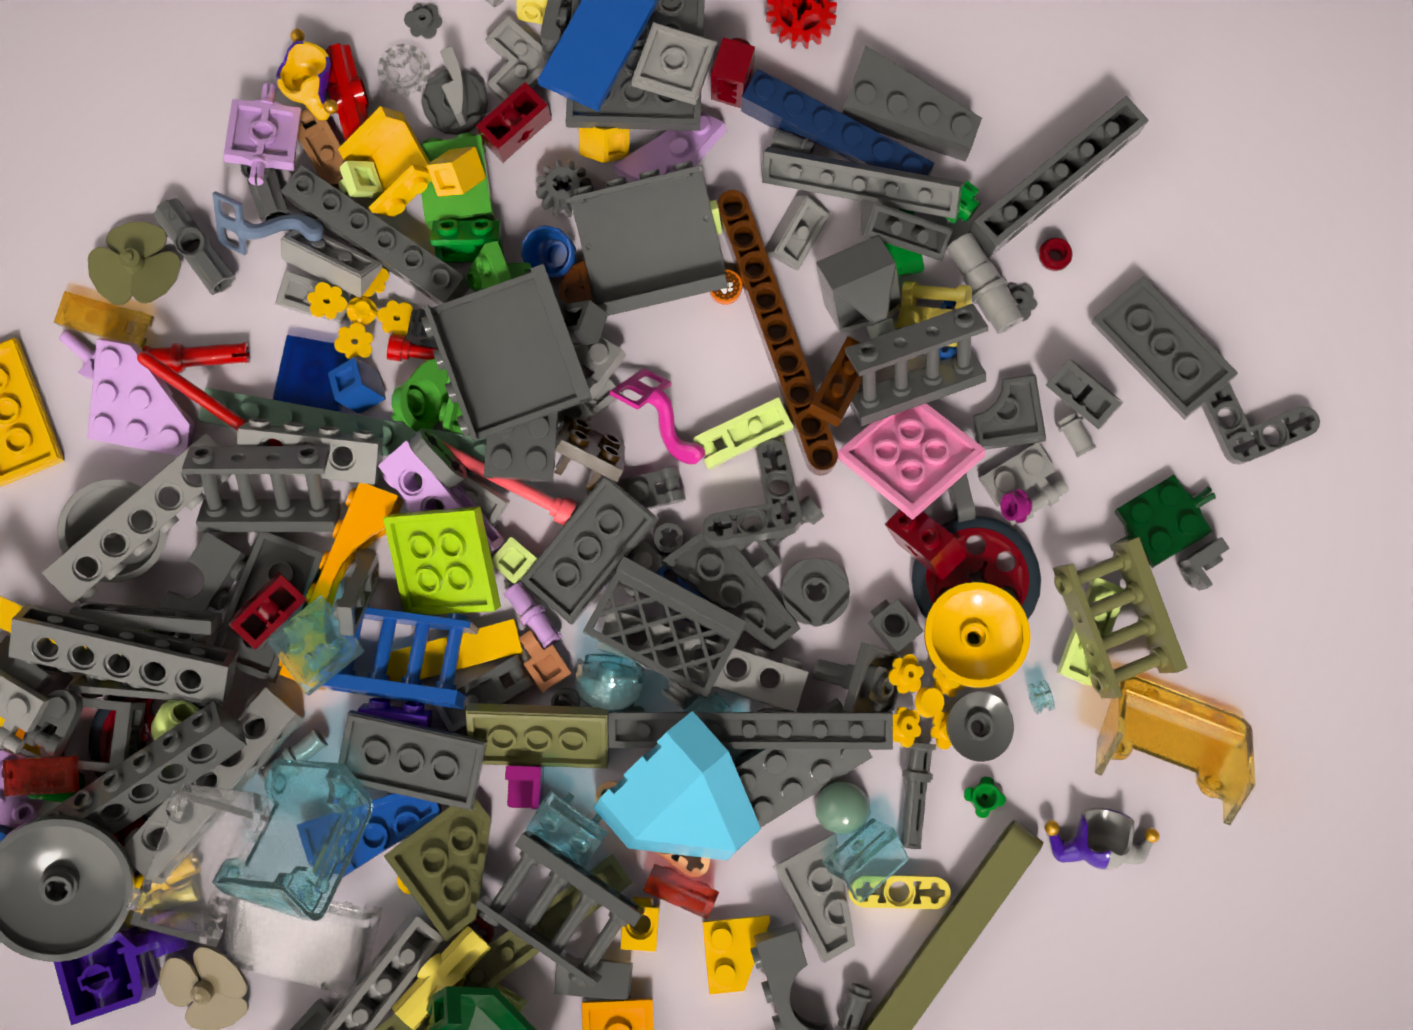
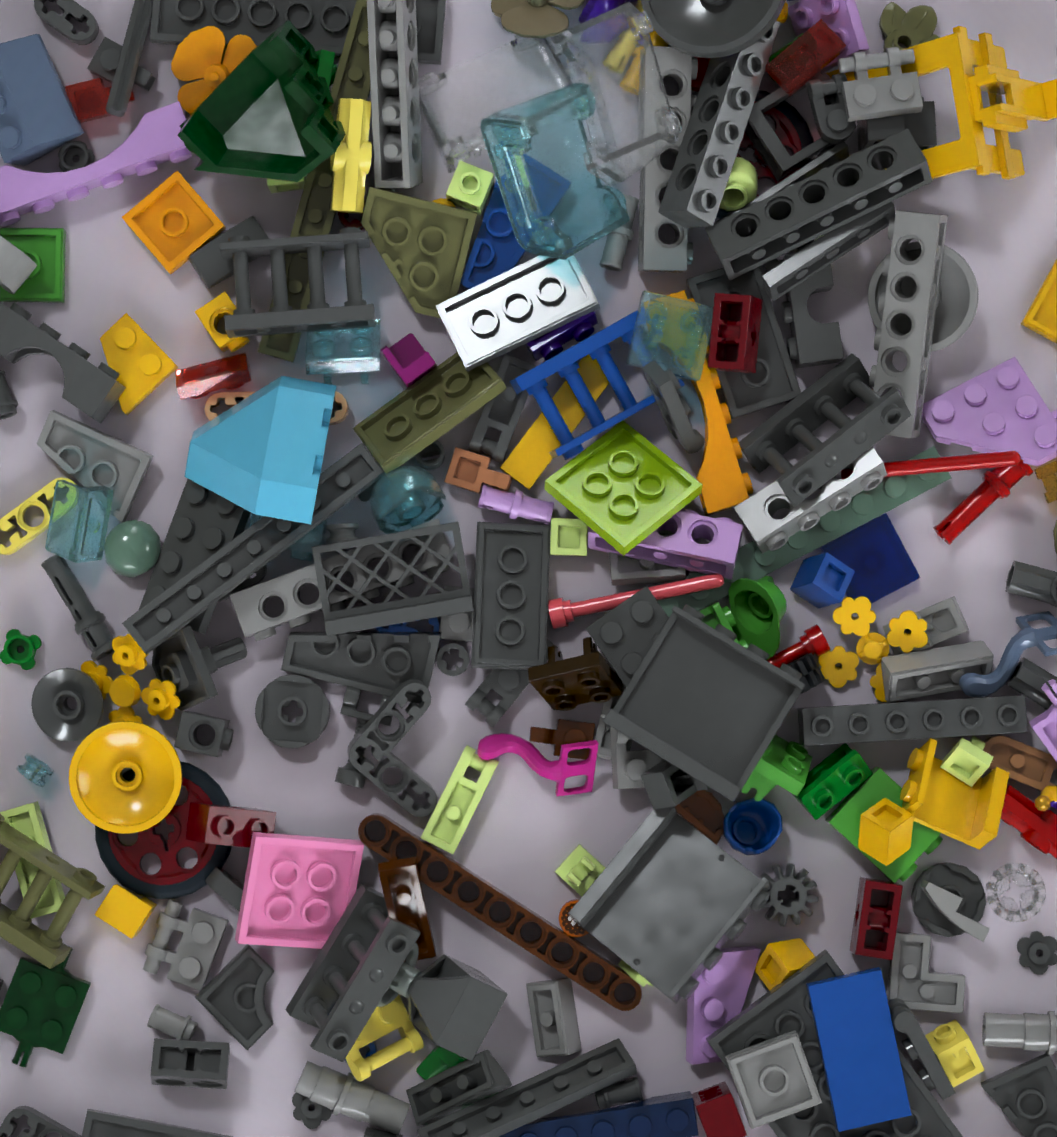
camera: 140 degrees right, 5 degrees up
(373, 881) = (470, 187): none -> yellowish green brick
(437, 458) = (697, 570): dark grey beam -> none
(629, 419) = (565, 733): none -> reddish brown plate
(696, 318) = (580, 870): none -> yellowish green tile
(1016, 506) = (175, 916): magenta plate -> none
(1050, 540) = (125, 911): none -> yellow panel

